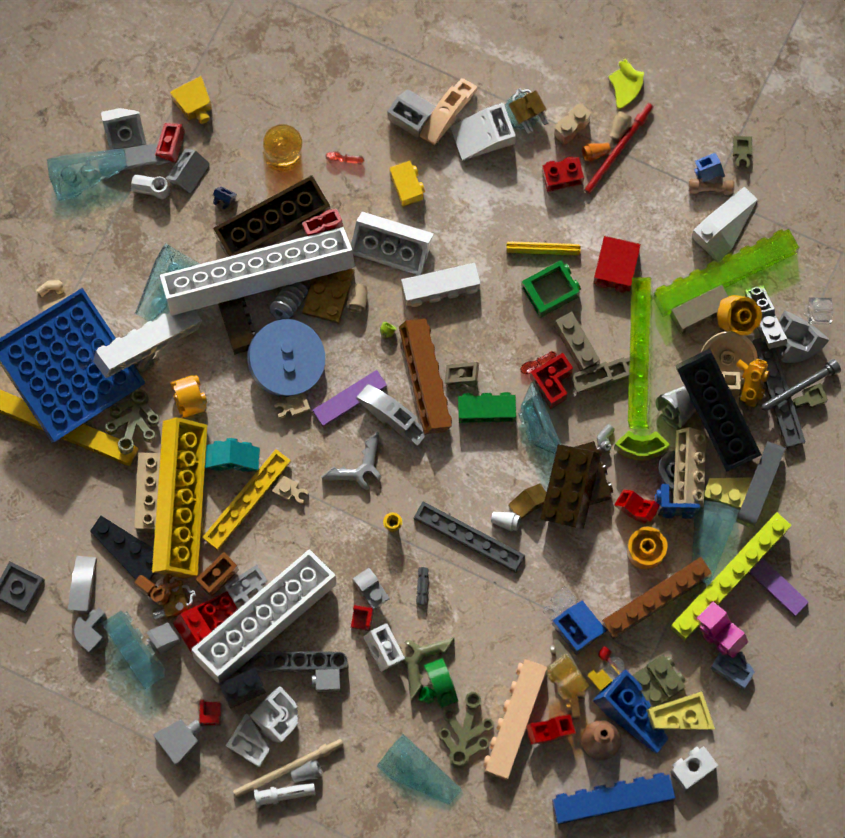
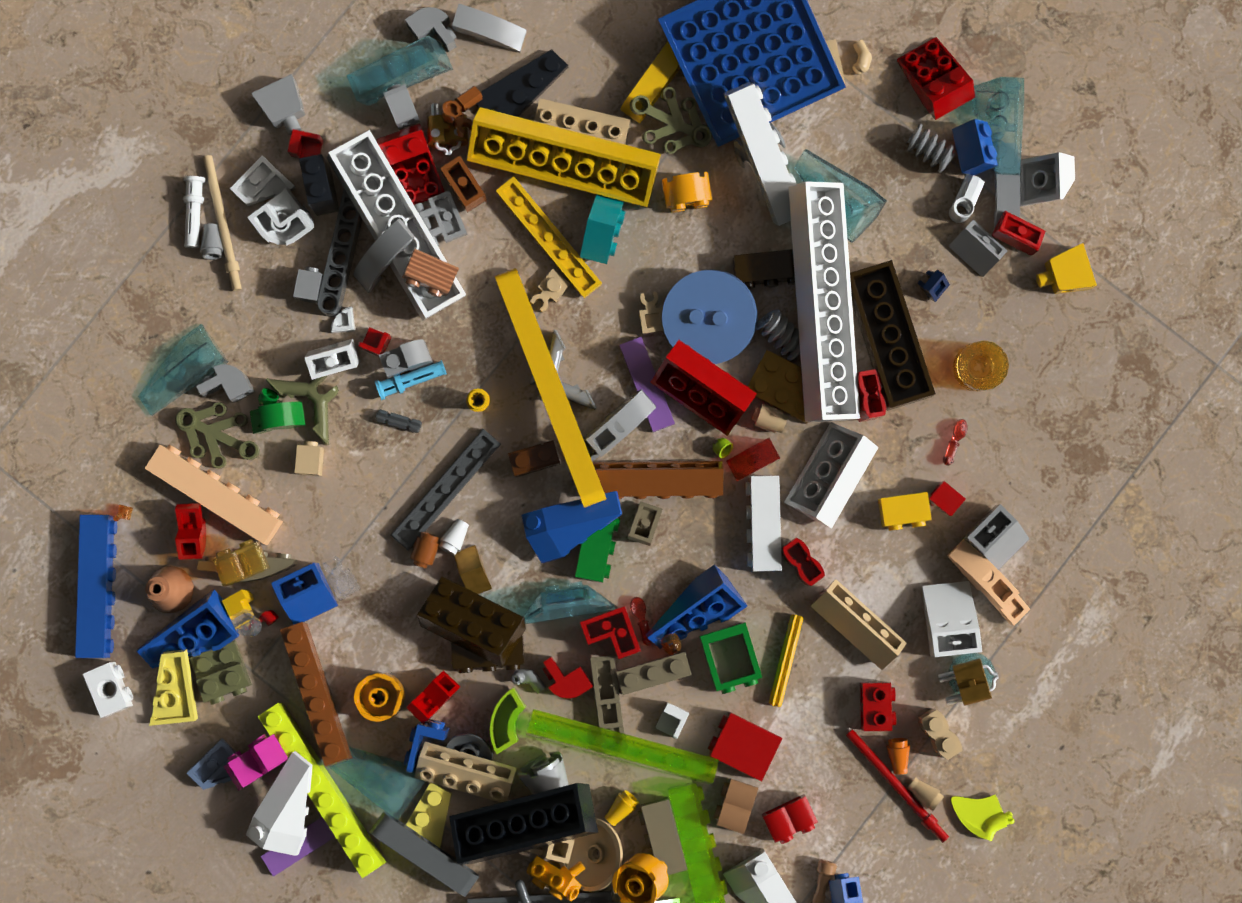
camera: 100 degrees right, 10 degrees up
(56, 227) = (937, 78): none -> red slope
(108, 185) = (975, 147): none -> blue brick
(114, 219) = (930, 148): none -> light grey piece
(292, 620) = (381, 254): none -> light grey slope
(299, 576) = (430, 273): none -> nougat brick
(344, 349) = (703, 387): none -> red brick
(350, 649) = (343, 321): none -> white tile
(369, 467) = (550, 388): none -> yellow beam
(390, 154) = (946, 498): none -> red panel
(392, 303) = (753, 459): none -> clear red slope
(392, 590) = (400, 382): none -> medium azure pin
(417, 726) = (231, 379): none -> light grey brick
(429, 470) = (534, 458): none -> reddish brown brick
(468, 246) = (806, 568): none -> red brick
(469, 649) = (309, 459): none -> tan brick
(480, 434) = (563, 526): none -> blue wedge
(503, 198) = (855, 621): none -> tan brick
(512, 317) = (703, 602): none -> blue wedge
(521, 540) = (425, 549): none -> dark orange brick
(547, 791) = (123, 512): none -> clear orange hand
(551, 335) = (668, 639): none -> clear orange hinge
(602, 406) = (569, 685): none -> red brick
(610, 322) = (672, 720): none -> white panel
(663, 219) = (789, 819): none -> red brick
(664, 260) = (736, 805): none -> medium nougat brick
(686, 345) = (622, 806): none -> yellow cone
(757, 598) = (281, 815): none -> white wedge

